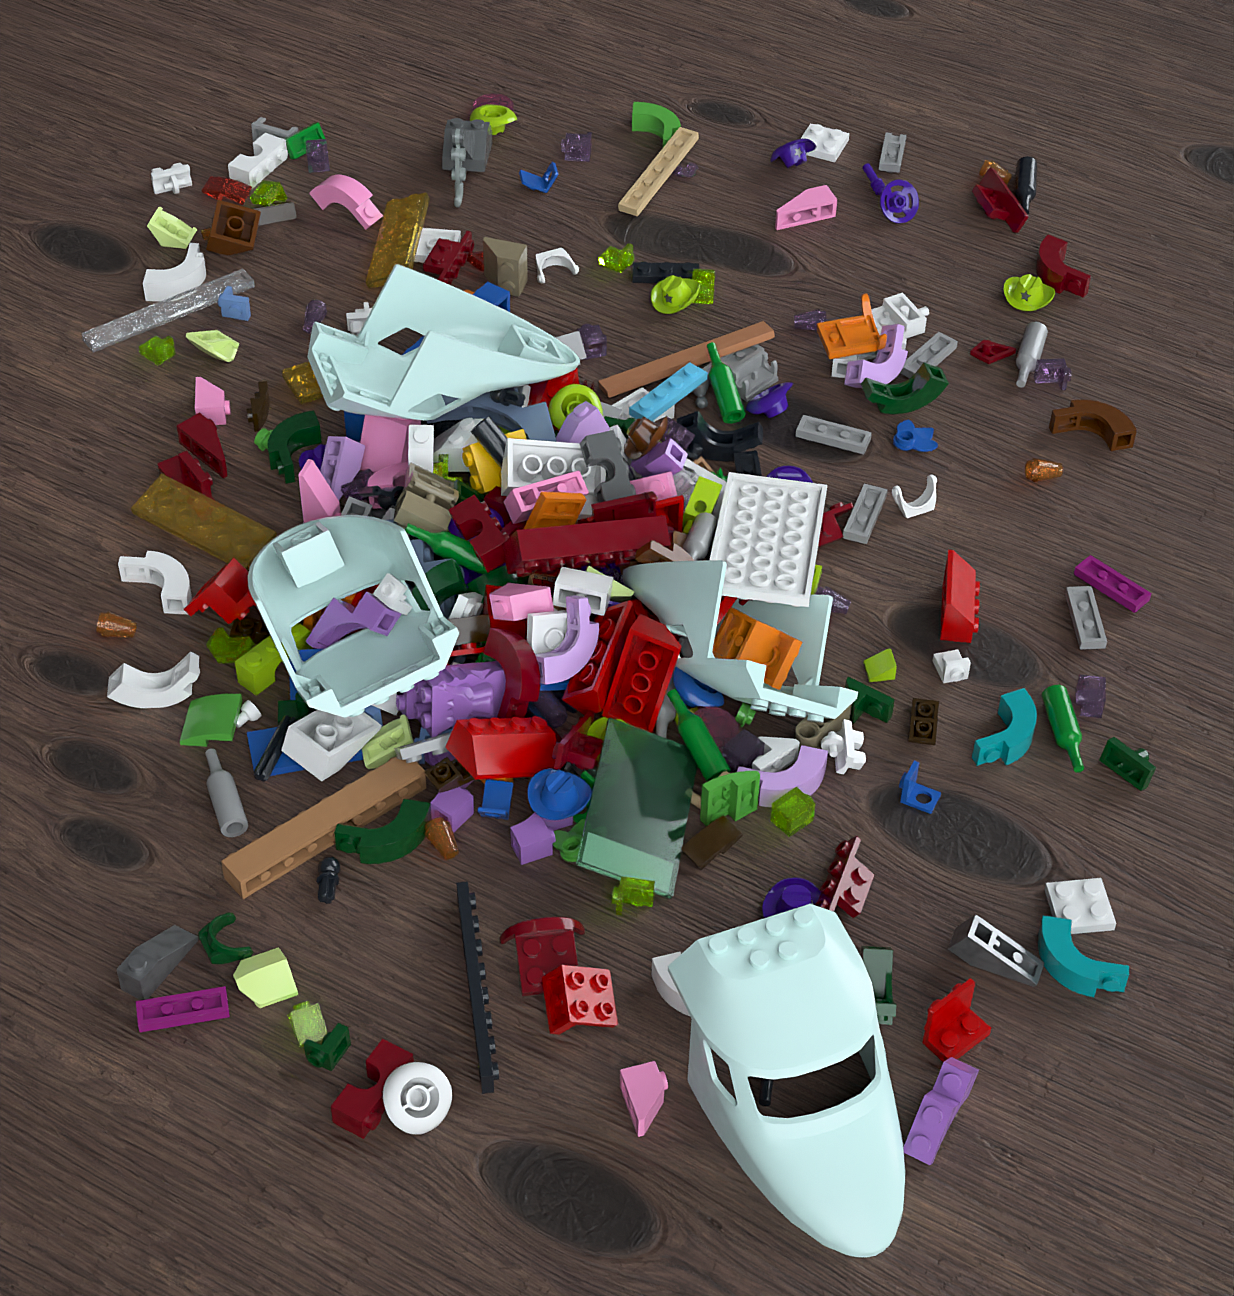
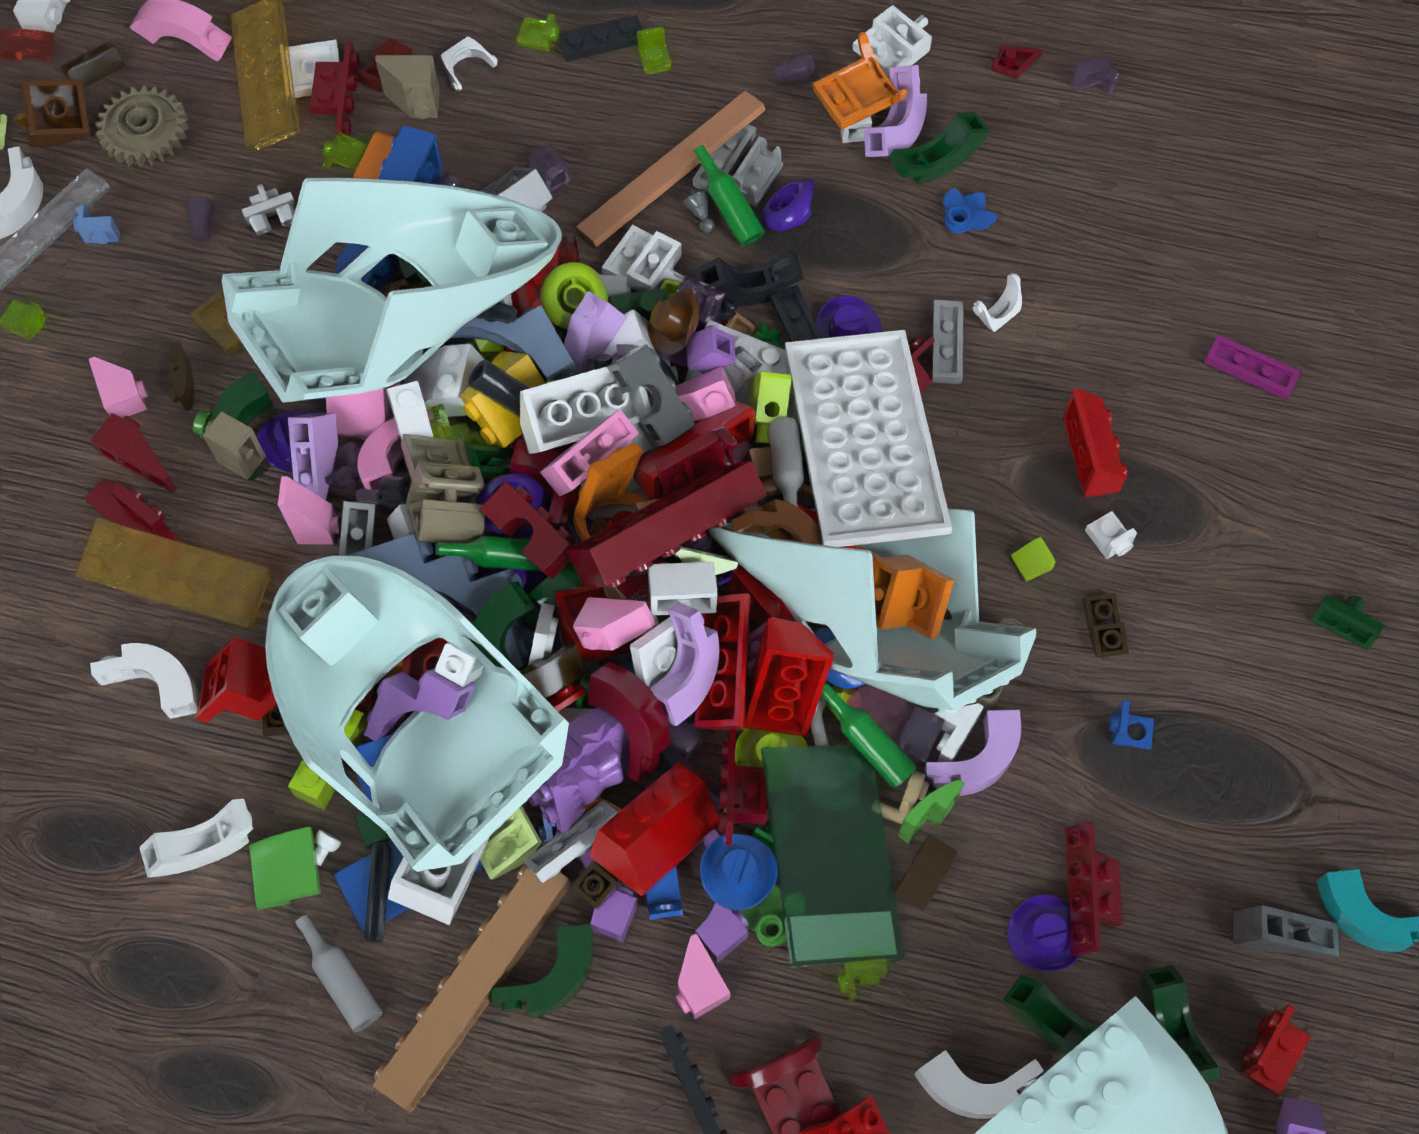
camera: 15 degrees left, 20 degrees up
(115, 625) = (119, 761): clear orange cone -> none
(214, 344) = (92, 293): yellowish green slope -> none
(228, 649) = (269, 756): clear neon green bracket -> none
(267, 193) = (77, 41): clear neon green bracket -> none
(281, 442) = (234, 445): none -> dark tan brick
(293, 253) = (142, 126): none -> dark tan gear
(327, 878) = (498, 1045): black axle -> none
(442, 838) = (617, 961): clear orange cone -> none
(502, 866) = (699, 981): none -> bright pink slope
(668, 392) = (670, 233): medium azure plate -> none
(674, 294) = (624, 71): lime hat -> none
(793, 811) = (1003, 800): clear neon green brick -> none
(833, 434) = (875, 233): light grey plate -> none
(839, 604) = (955, 481): clear purple cone -> none
(842, 746) = (1029, 692): white hips -> none
(869, 701) = (1033, 614): dark green slope -> none
(931, 352) = (947, 87): light grey plate -> none
(1020, 717) = (1217, 602): teal arch -> none
(1030, 350) = (1060, 50): light grey piece -> none
(1042, 470) = (1123, 223): clear orange cone -> none
(1064, 723) = (1261, 586): green piece -> none
(1083, 903) = (1352, 833): white plate -> none
(1086, 617) = (1238, 424): light grey plate -> none
(1091, 695) = (1279, 537): clear purple brick -> none
(1098, 418) = (1168, 130): reddish brown arch -> none

